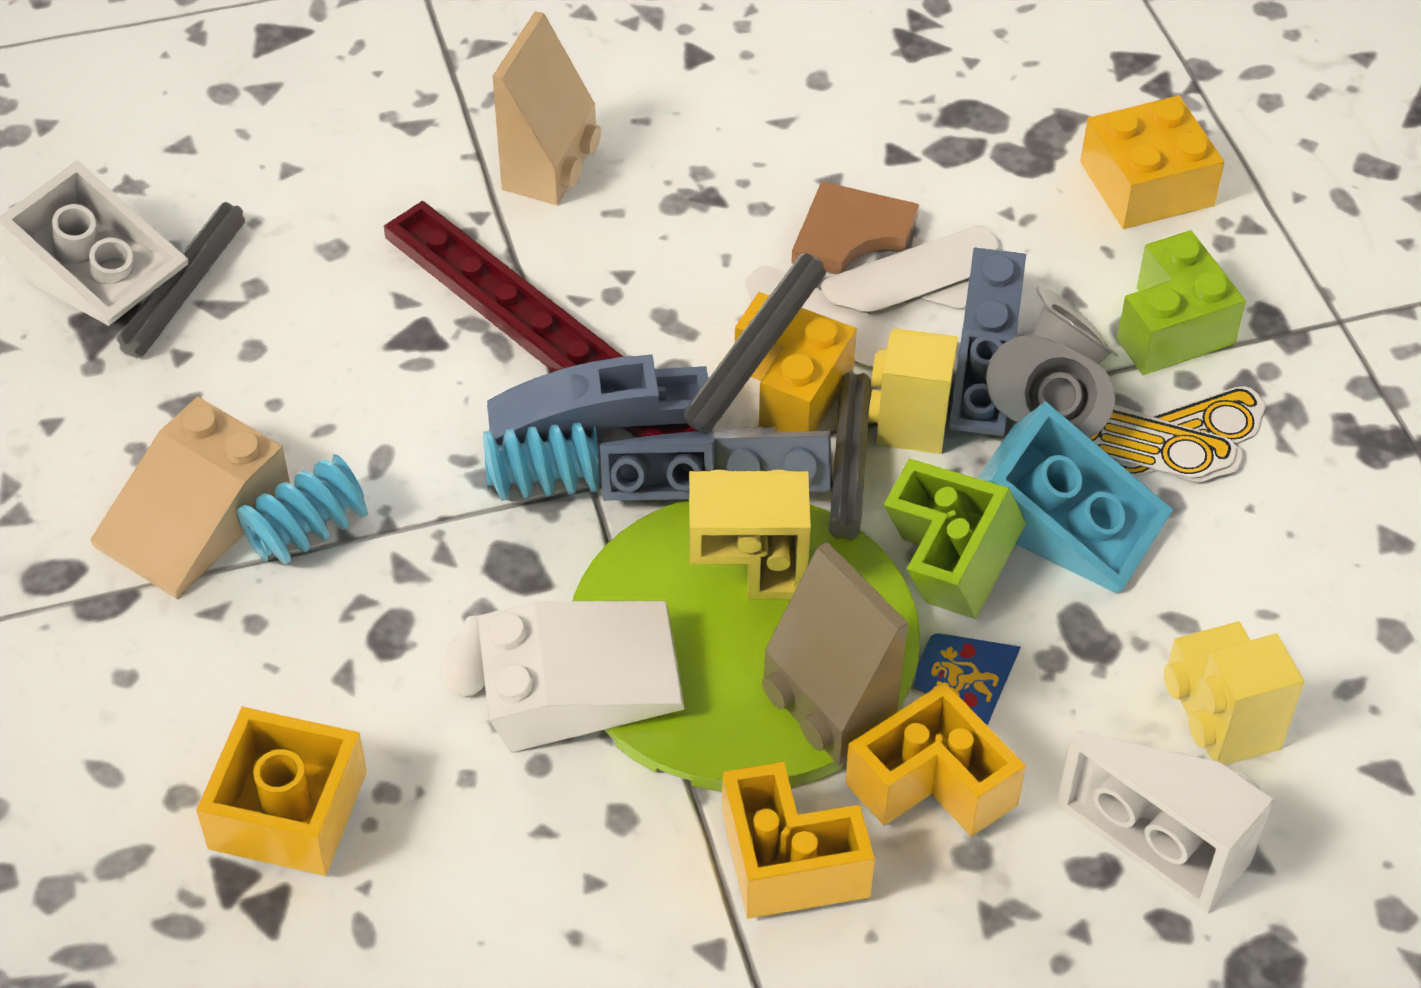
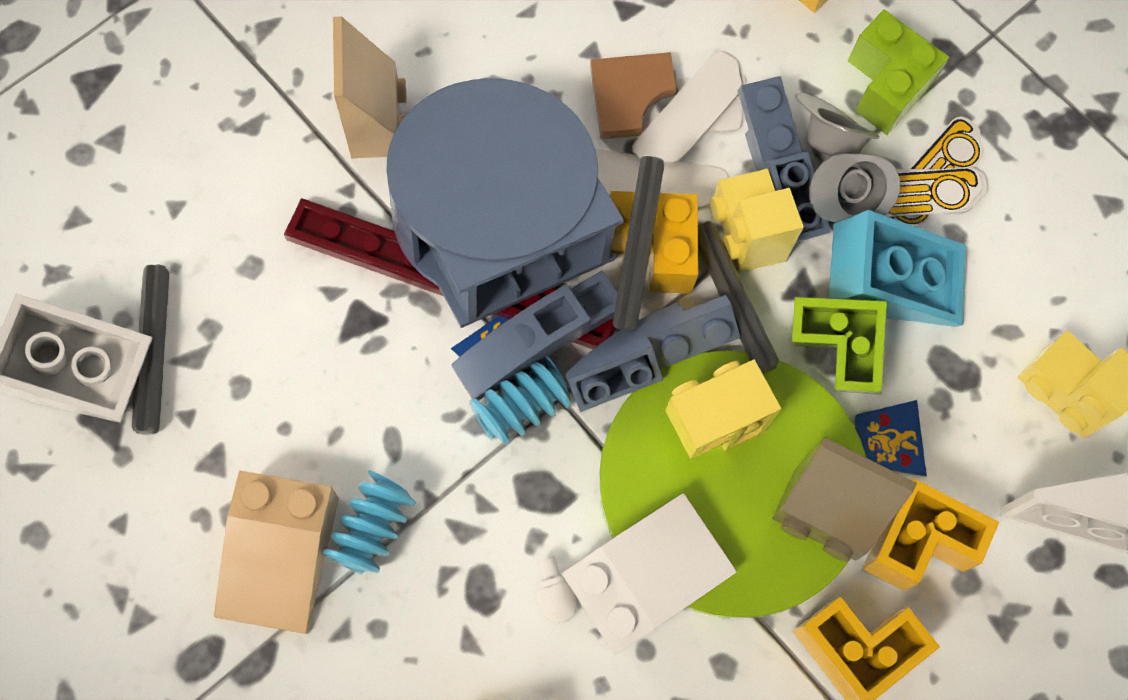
camera: 30 degrees left, 20 degrees up
(624, 248) = (497, 195): none -> sand blue brick

